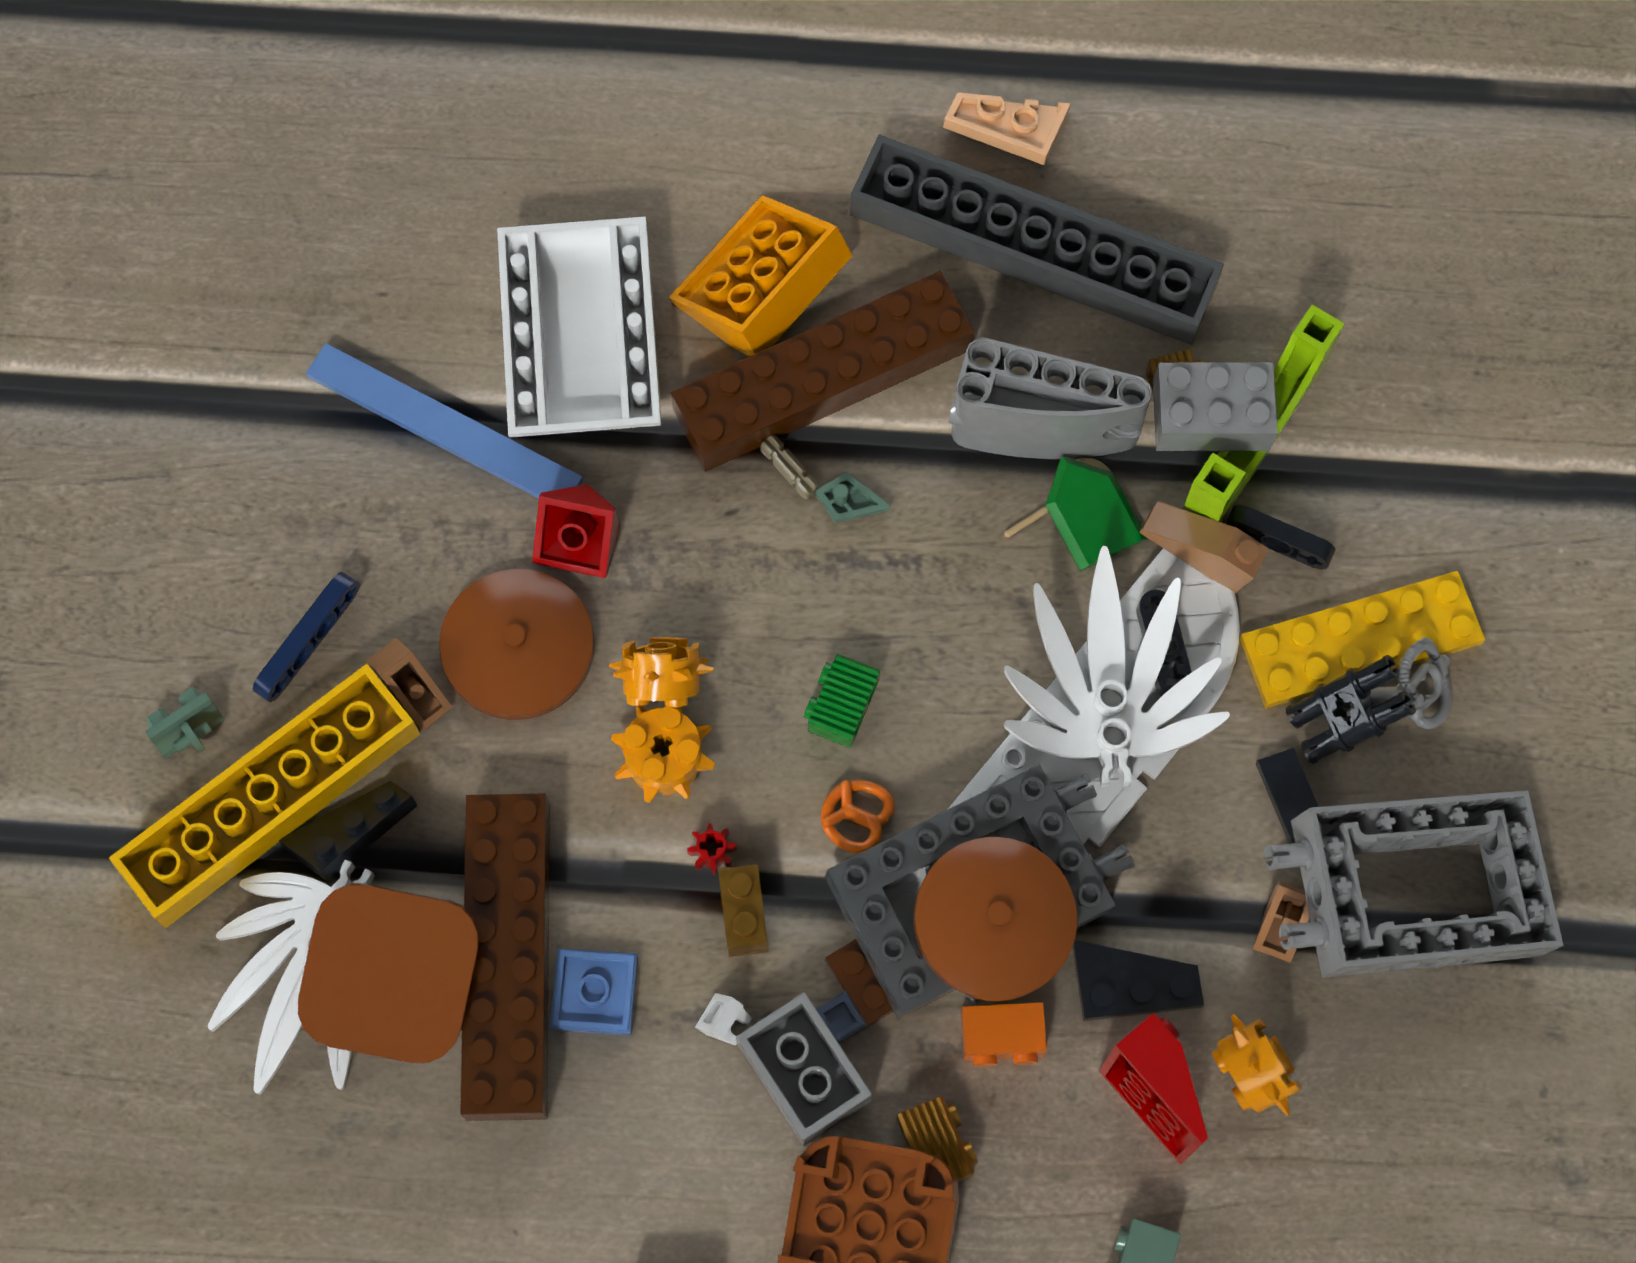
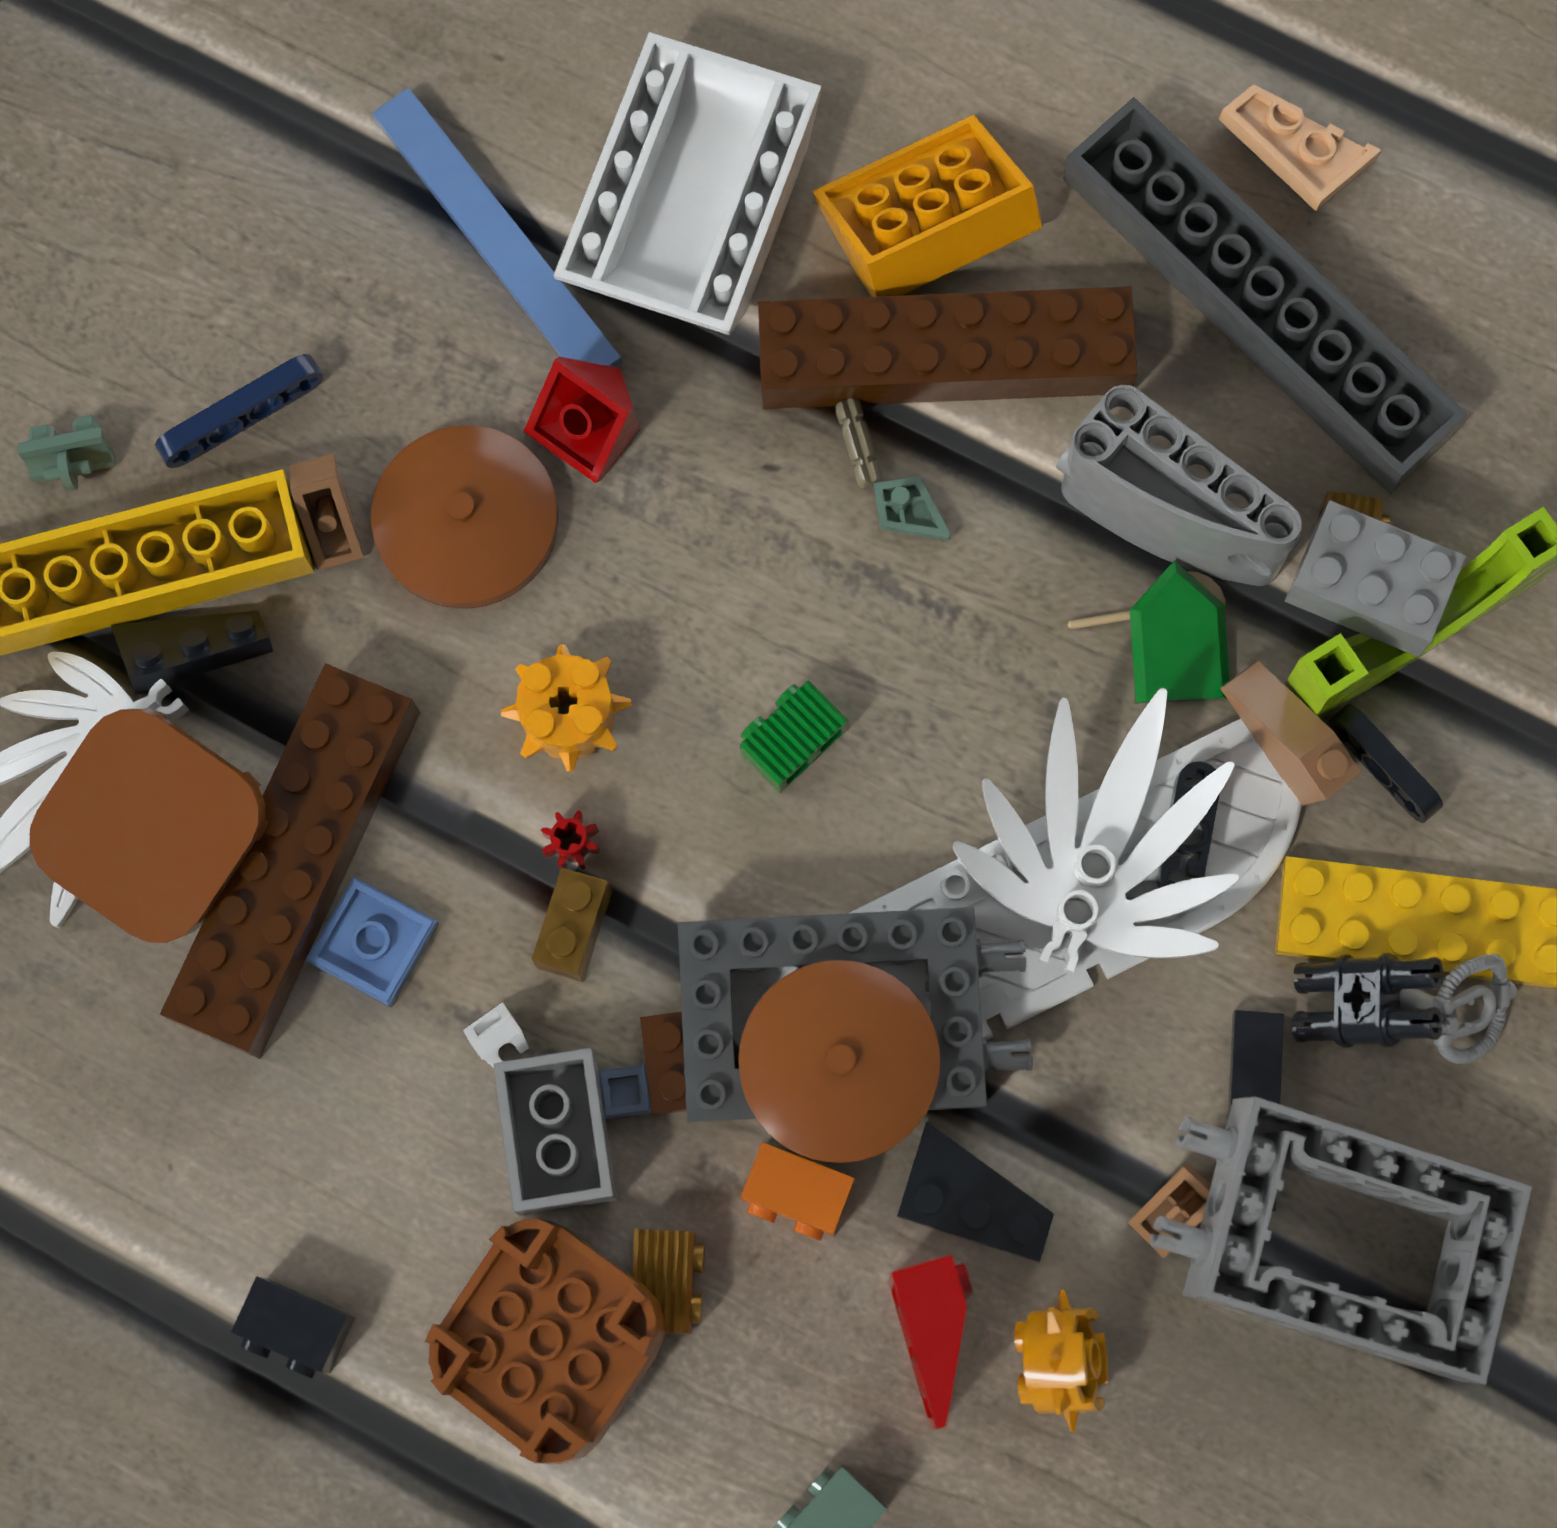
camera: 30 degrees right, 5 degrees up
(661, 671) = (601, 616): light orange brick -> none
(856, 814) = (749, 871): orange piece -> none

